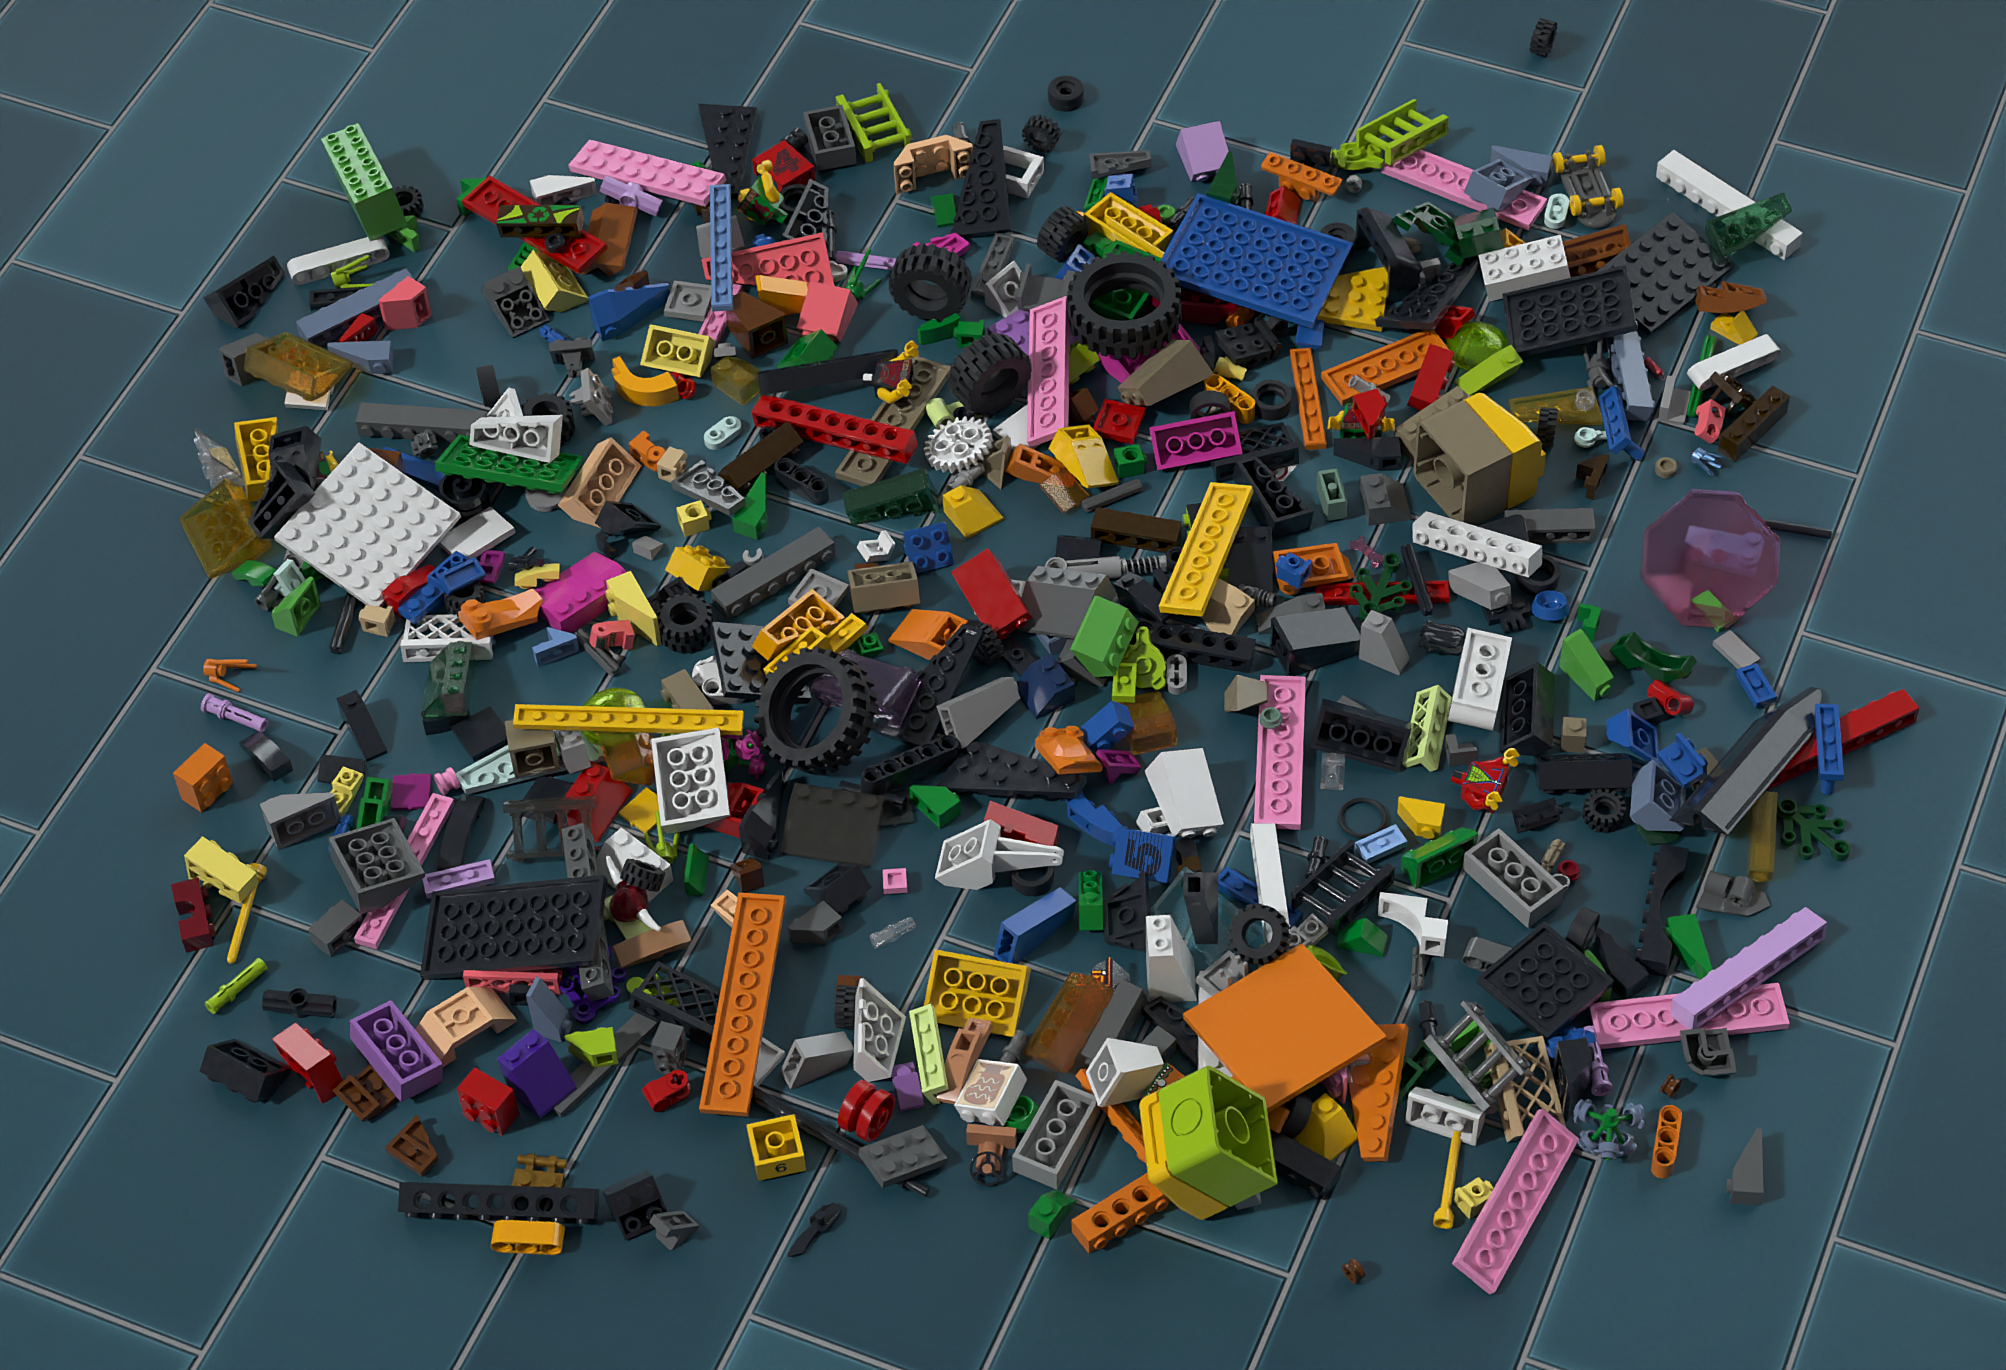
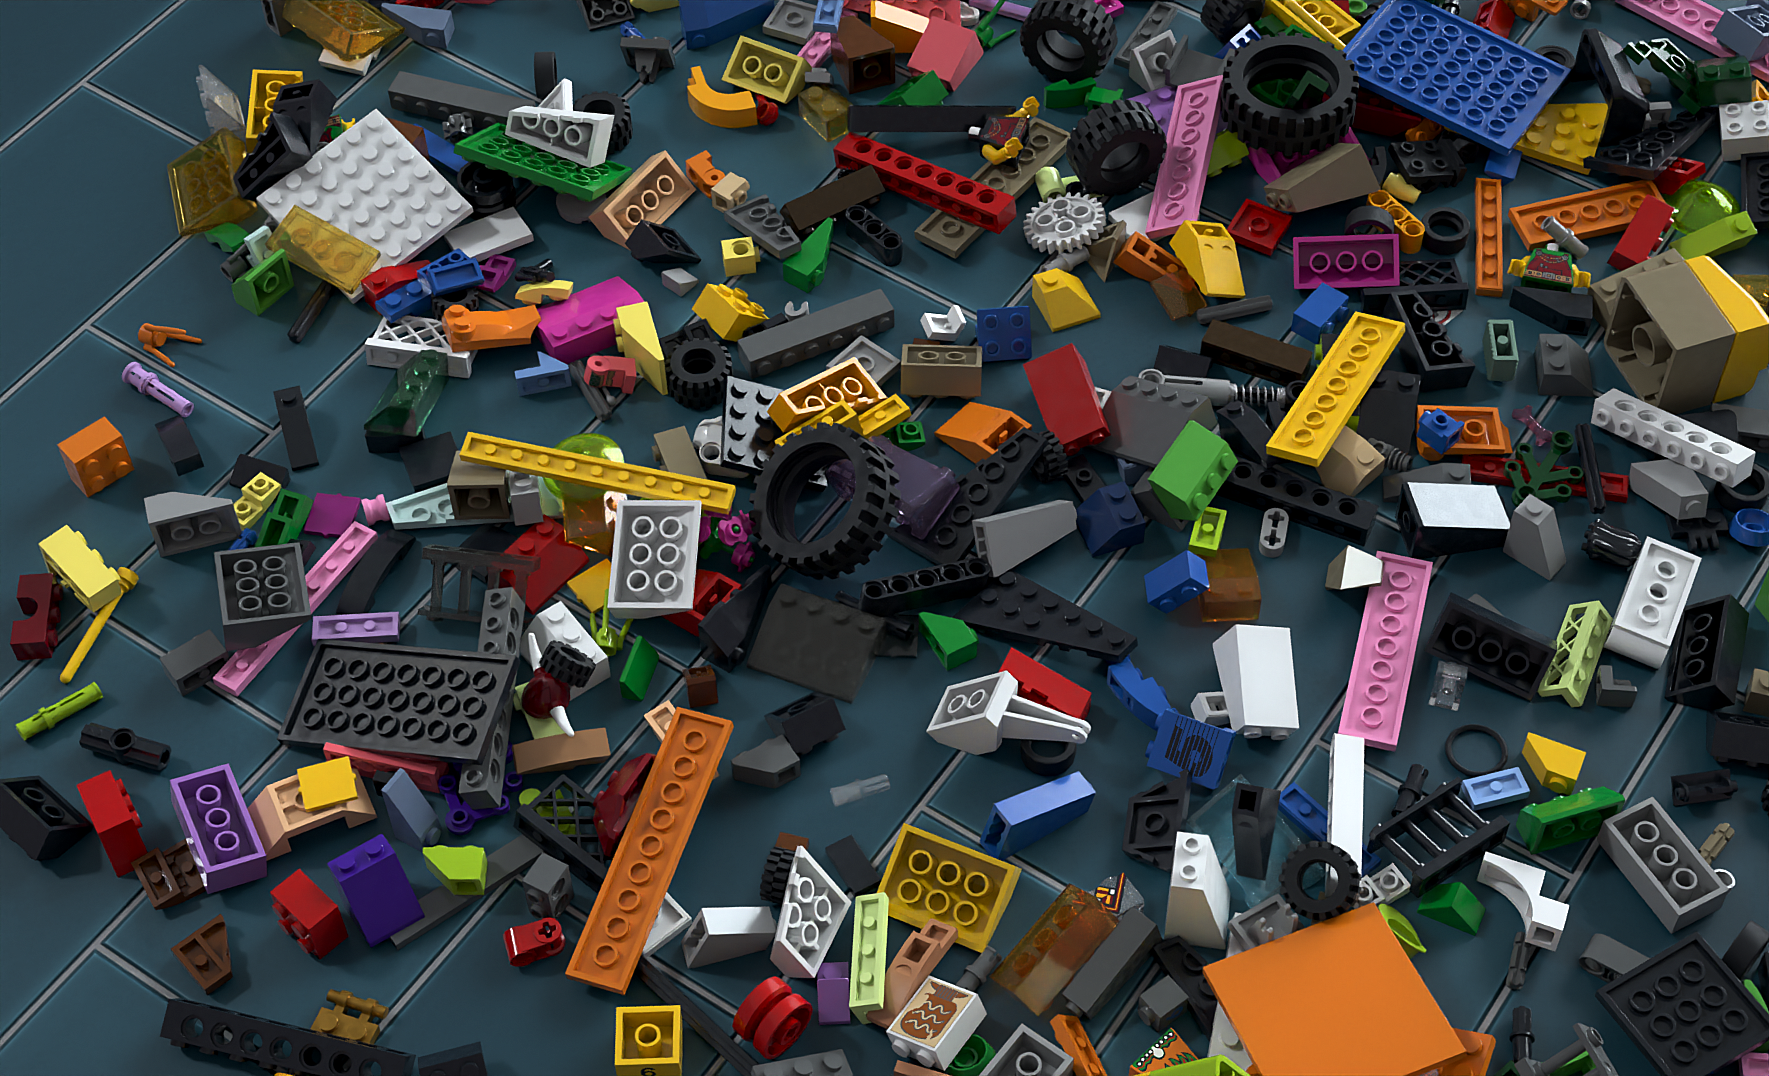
camera: 10 degrees right, 0 degrees up
(344, 571) = (323, 249): none -> clear yellow tile
(377, 619) = (350, 311): tan brick -> none
(475, 1001) = (327, 784): none -> yellow piece
(594, 396) = (660, 105): light grey plate -> none
(604, 546) = (629, 272): black tile -> none
(709, 973) = (619, 800): none -> dark red wedge
(724, 432) = (796, 168): light aqua plate -> none
(891, 498) = (974, 270): clear green wedge -> none
(894, 881) = (876, 726): bright pink plate -> none
(900, 990) = (853, 866): none -> black tile
(1066, 750) = (1120, 602): orange slope -> none
(1081, 406) = (1217, 202): reddish brown slope -> none
(1090, 900) = (1114, 795): green slope -> none
(1117, 762) = (1178, 627): magenta slope -> none
(1123, 1071) = (1110, 1029): white slope -> none
(1129, 461) = (1263, 273): green brick -> none
(1137, 305) = (1306, 92): none -> dark green fence
(1149, 660) = (1243, 510): lime tile -> none
(1182, 487) = (1320, 313): none -> blue brick
(1187, 855) = (1246, 760): leg -> none
(1270, 718) = (1381, 606): sand green plate -> none
(1369, 410) = (1562, 259): red slope -> none
(1485, 781) = (1642, 732): torso -> none
(1570, 869) = (1736, 865): dark red plate -> none

